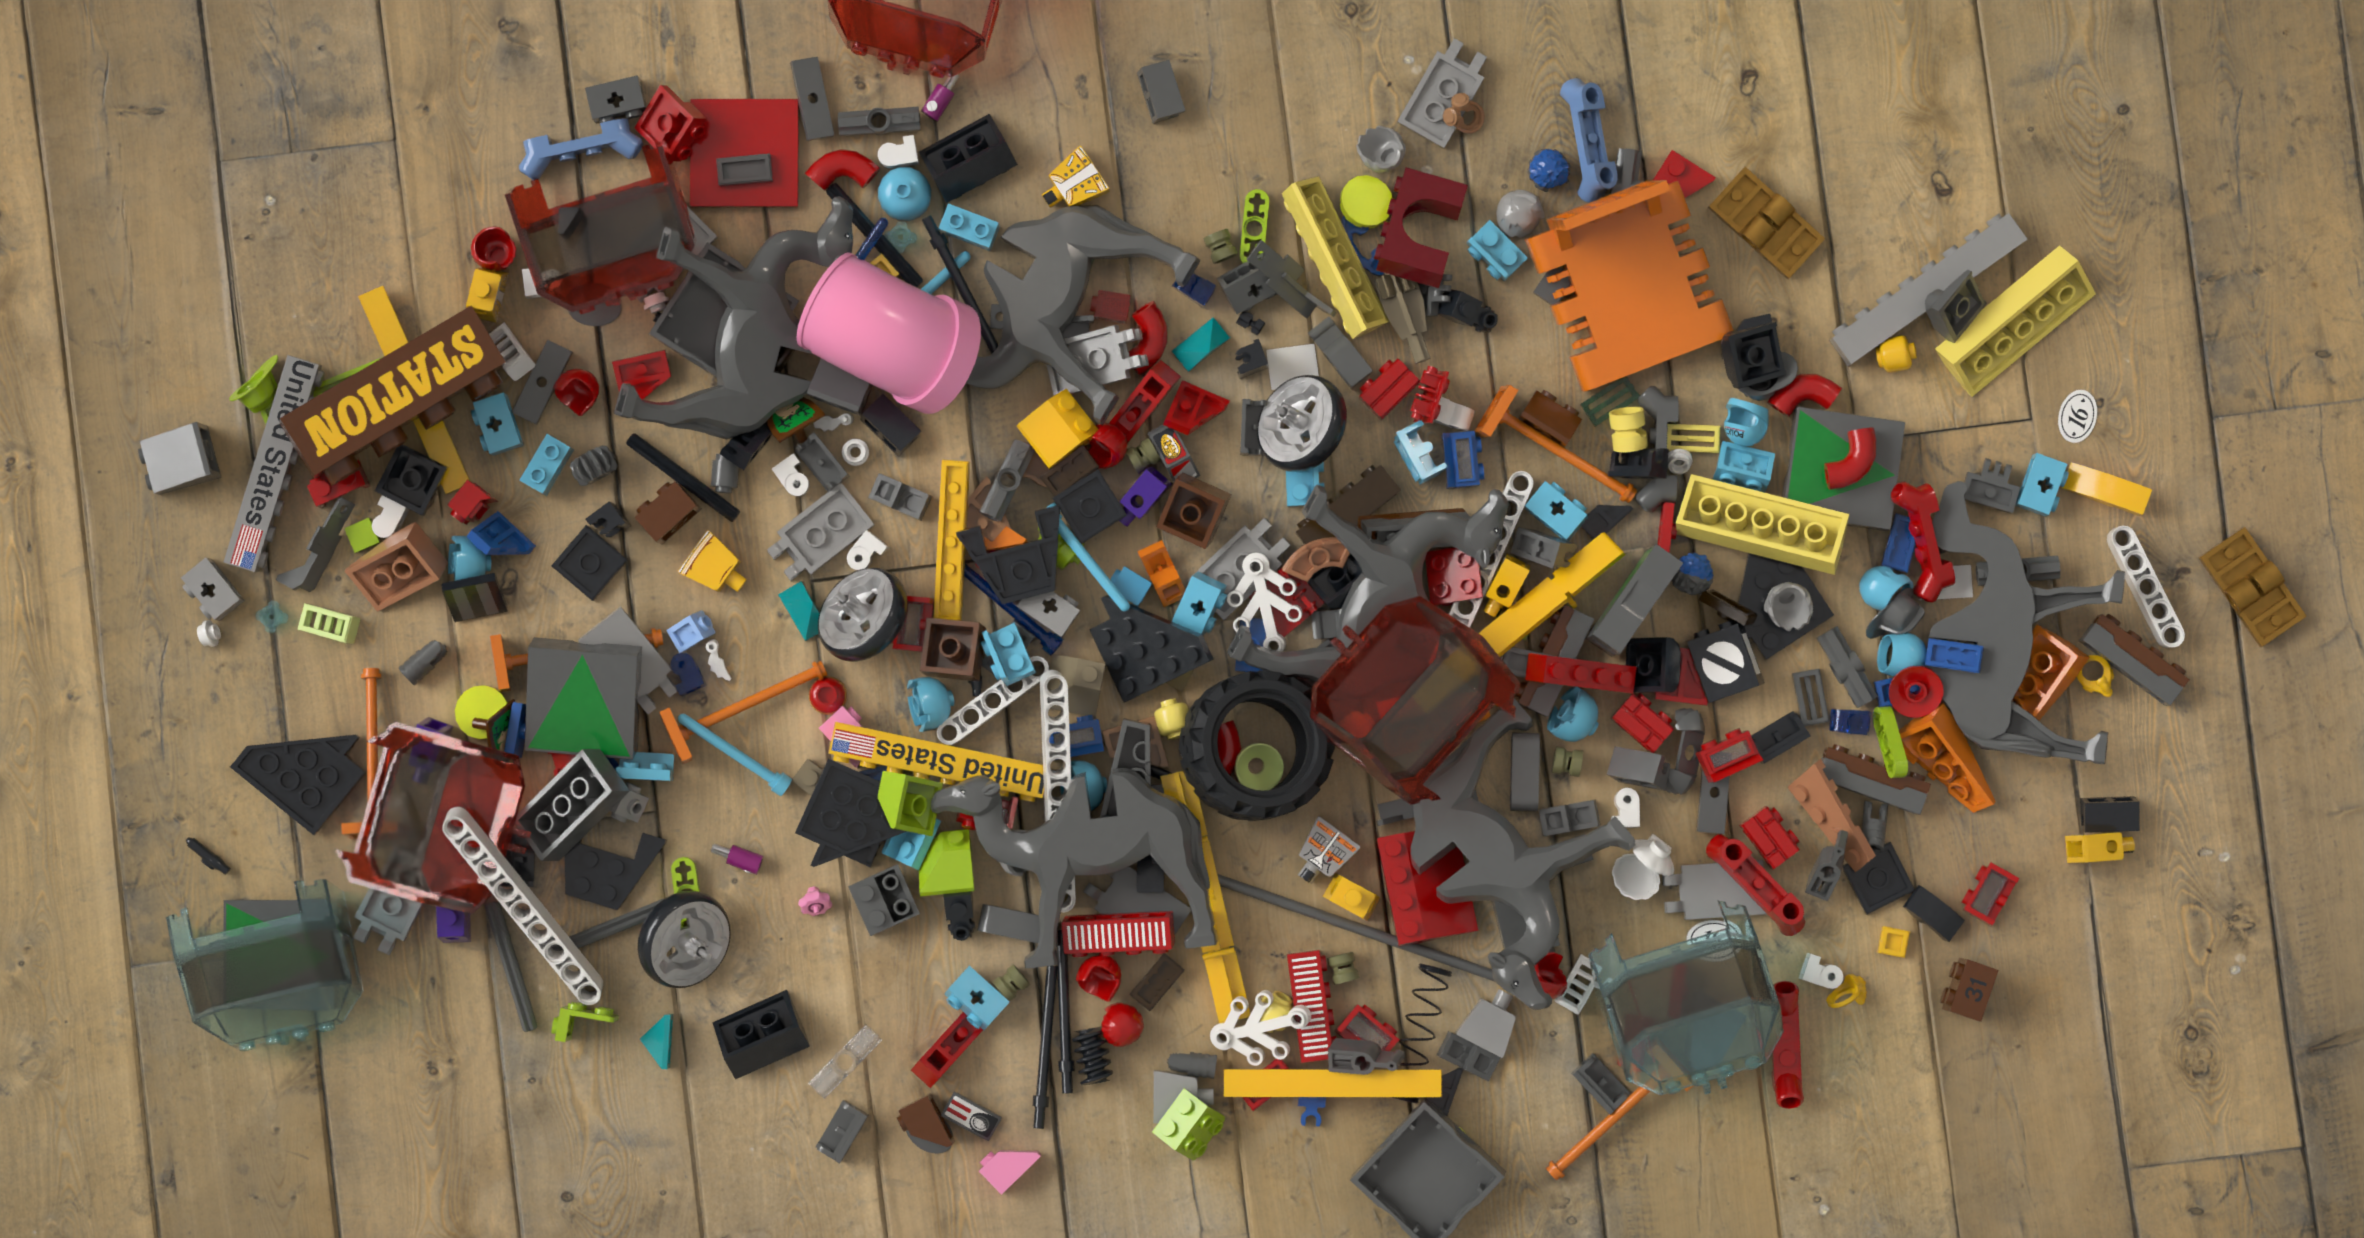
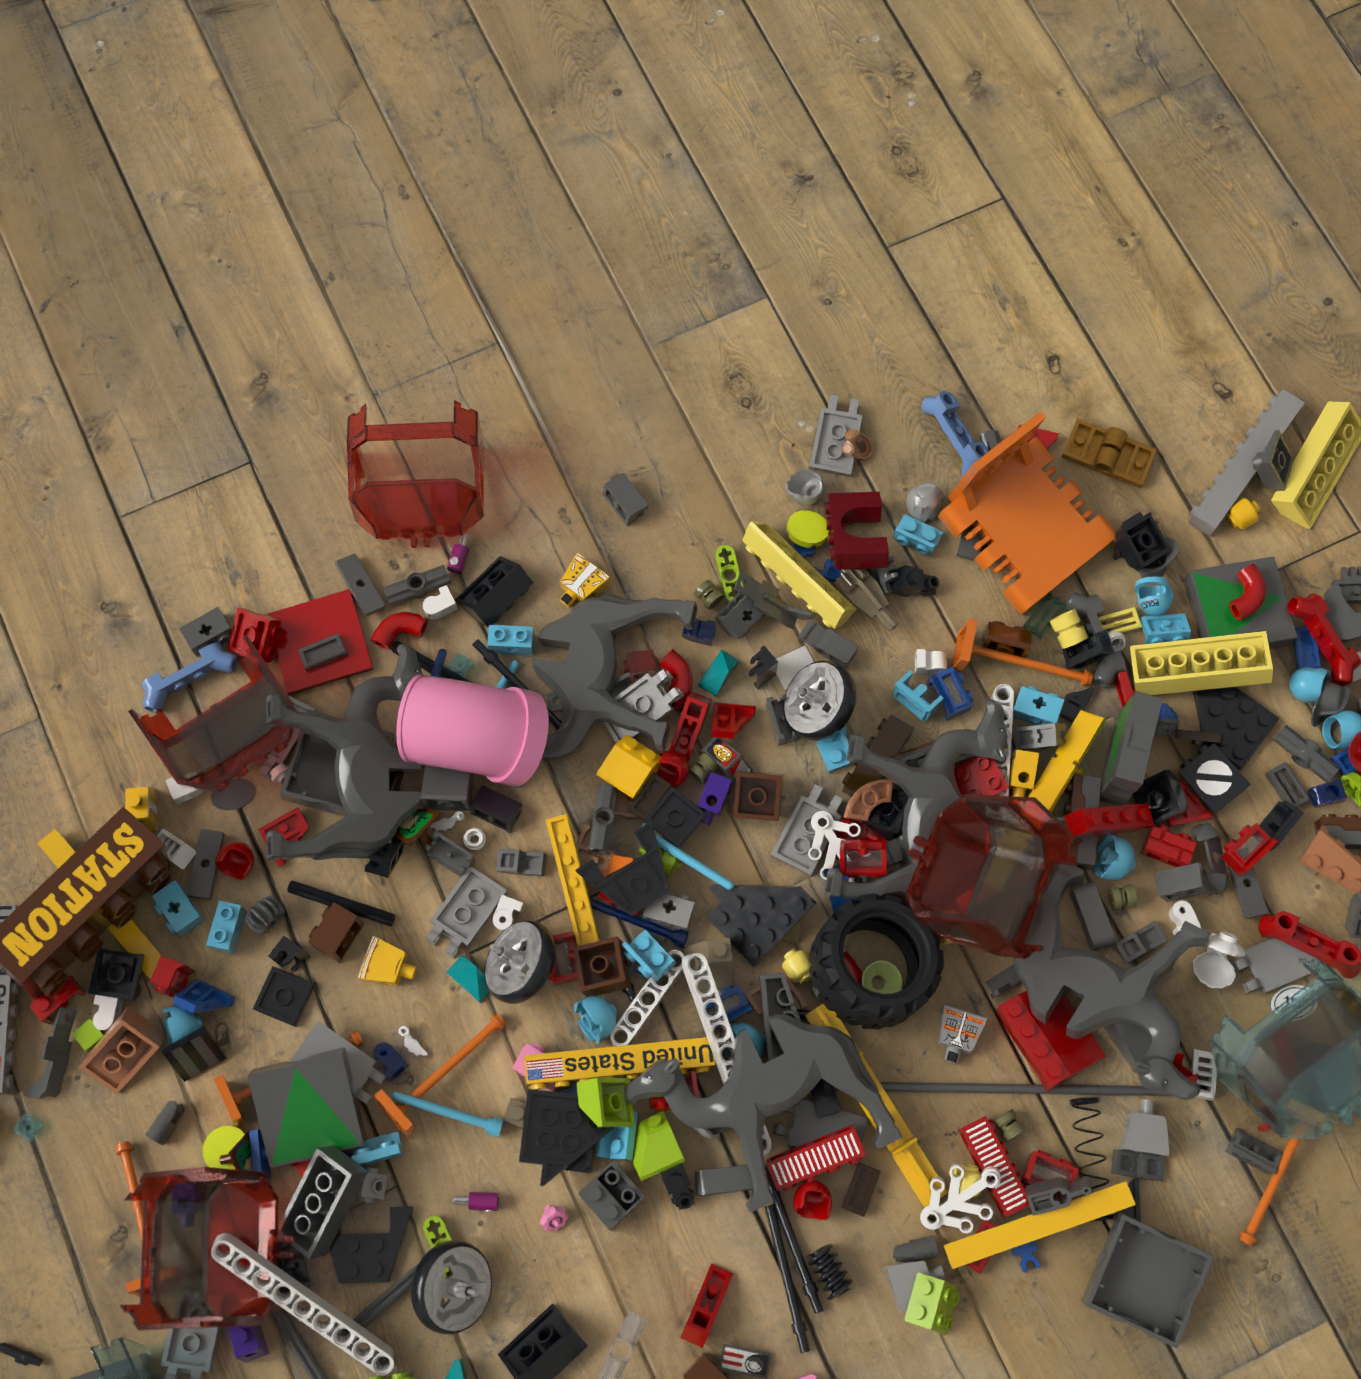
camera: 25 degrees left, 15 degrees down
(302, 776) = (86, 1256): black wing -> none
(345, 629) = (92, 1119): yellowish green slope -> none
(493, 249) = (138, 771): red hair -> none
(569, 220) = (193, 729): black slope -> none
(691, 631) = (383, 1024): light blue bracket -> none
(724, 475) = (374, 889): dark grey brick -> none
(793, 481) = (429, 875): white leg -> none
(827, 695) = (511, 1040): red piece -> none
(904, 193) = (453, 632): medium azure cylinder -> none
(970, 985) = (728, 1255): medium azure brick -> none
(1005, 985) = (738, 1237): olive wheel -> none
(1122, 1024) = (845, 1235): red hair -> none
(1131, 585) = (729, 868): dark azure brick -> none
(1162, 573) = (749, 854): orange slope -> none
(1200, 589) = (782, 856): medium azure brick -> none
(1246, 320) = (747, 643): black piece -> none
(1286, 624) = (863, 858): none -> red window
(1351, 897) = (993, 1062): yellow torso -> none
(1389, 388) = (874, 658): red brick -> none
(1428, 407) = (910, 650): red hinge -> none
(1548, 169) = (934, 464): blue piece -> none
(1770, 837) = (1304, 903): red brick -> none
(1789, 605) = (1247, 717): light grey hair -> none
(1803, 388) = (1188, 558): red cylinder -> none

